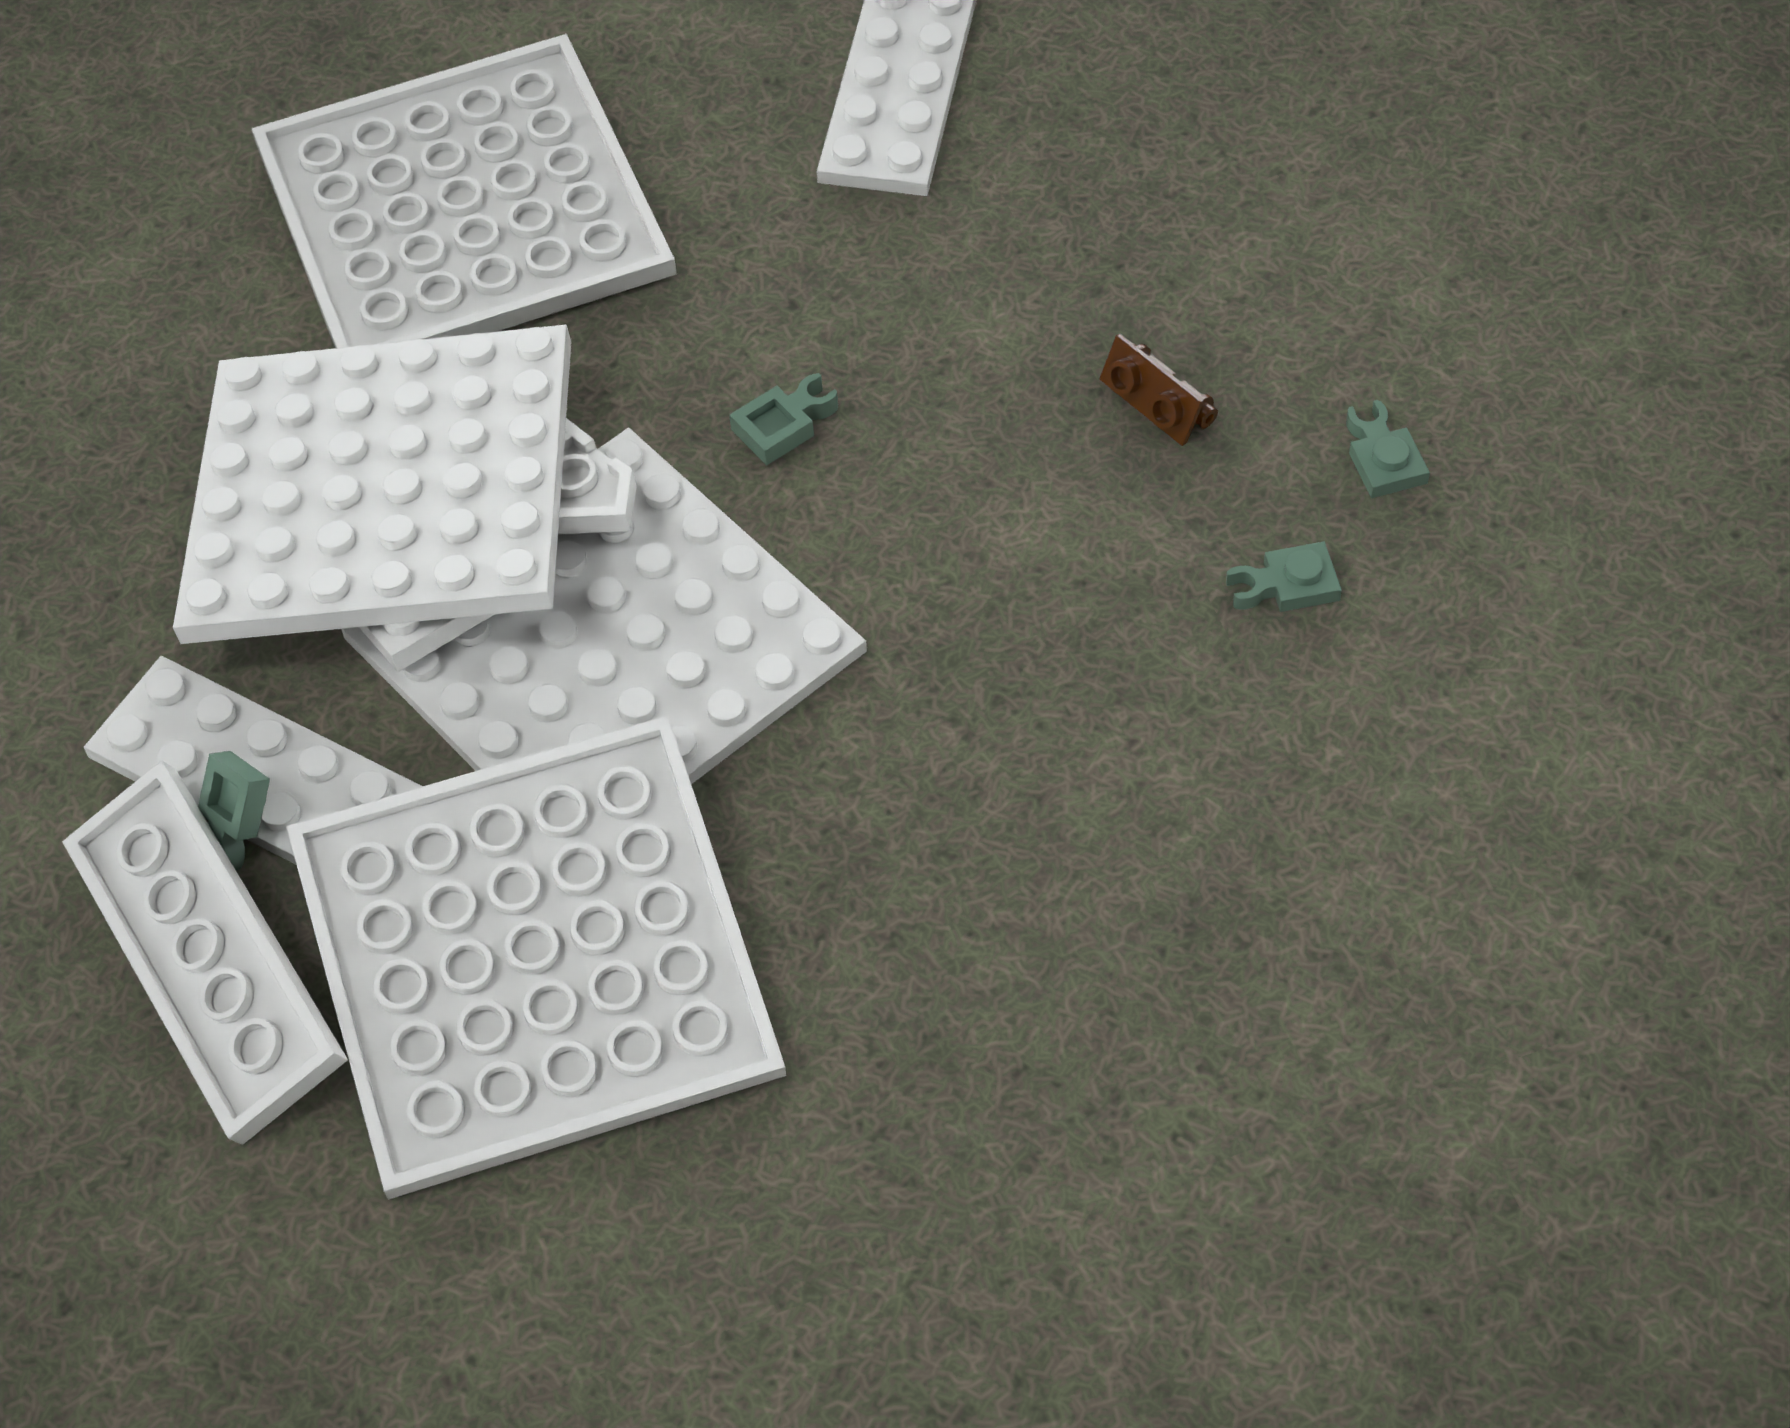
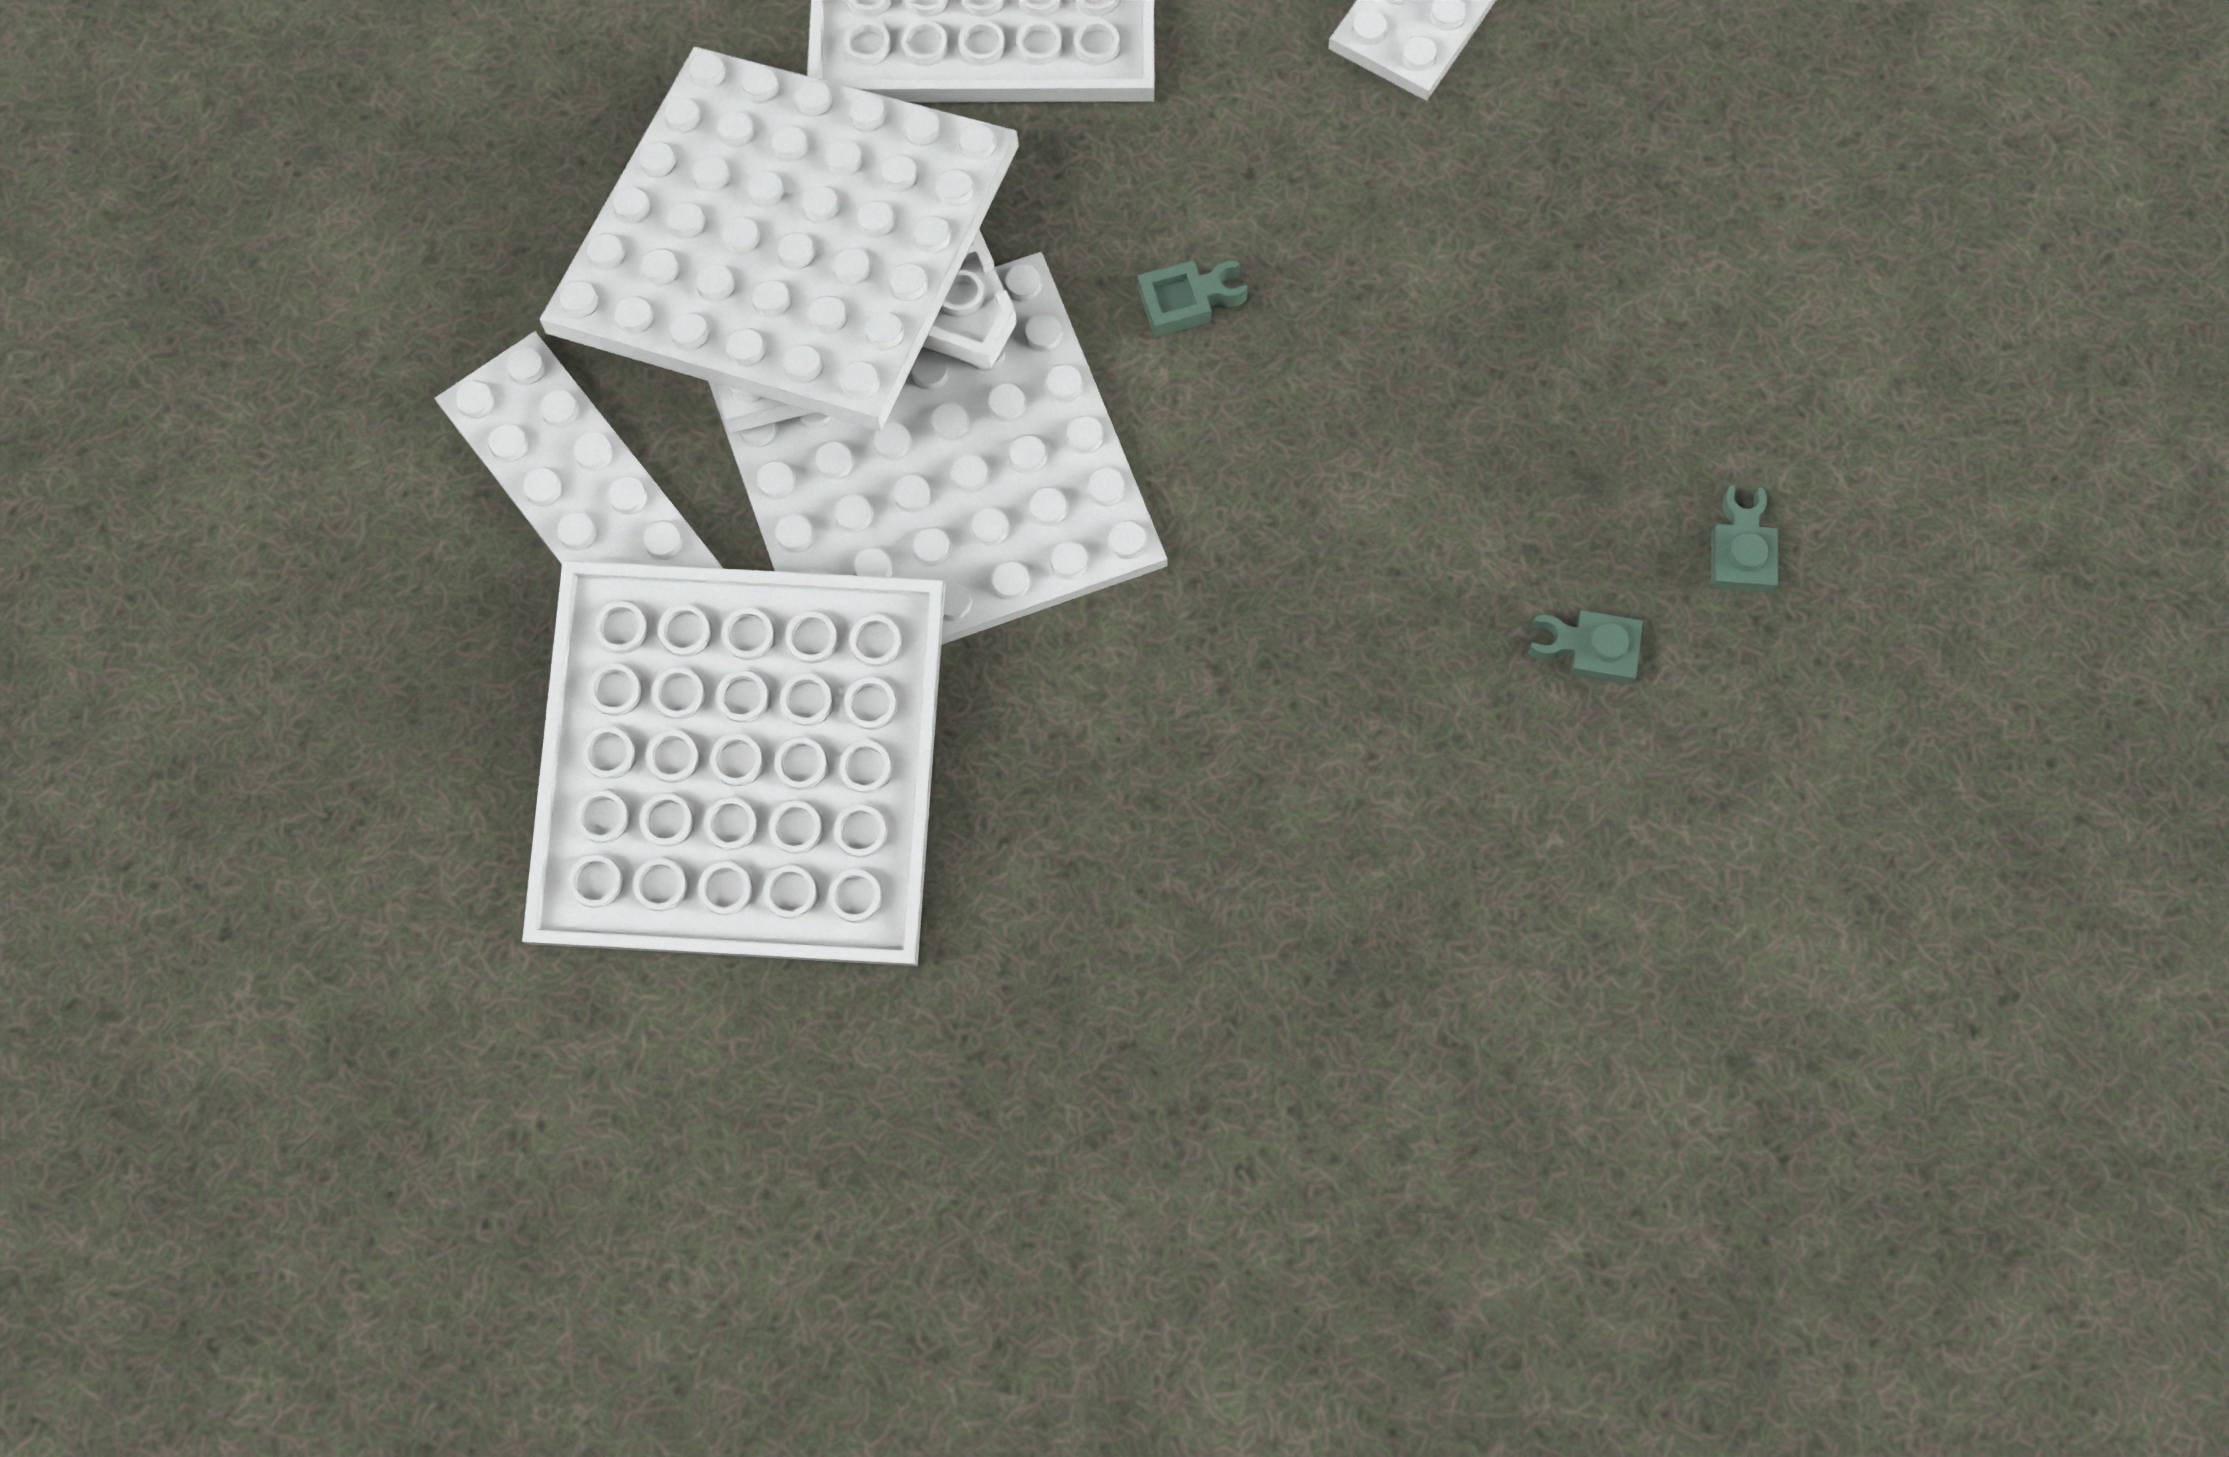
camera: 20 degrees right, 15 degrees up
(204, 953) = (456, 646): white plate -> none
(233, 802) = (532, 514): sand green plate -> none
(1155, 391) = (1545, 381): reddish brown hinge -> none

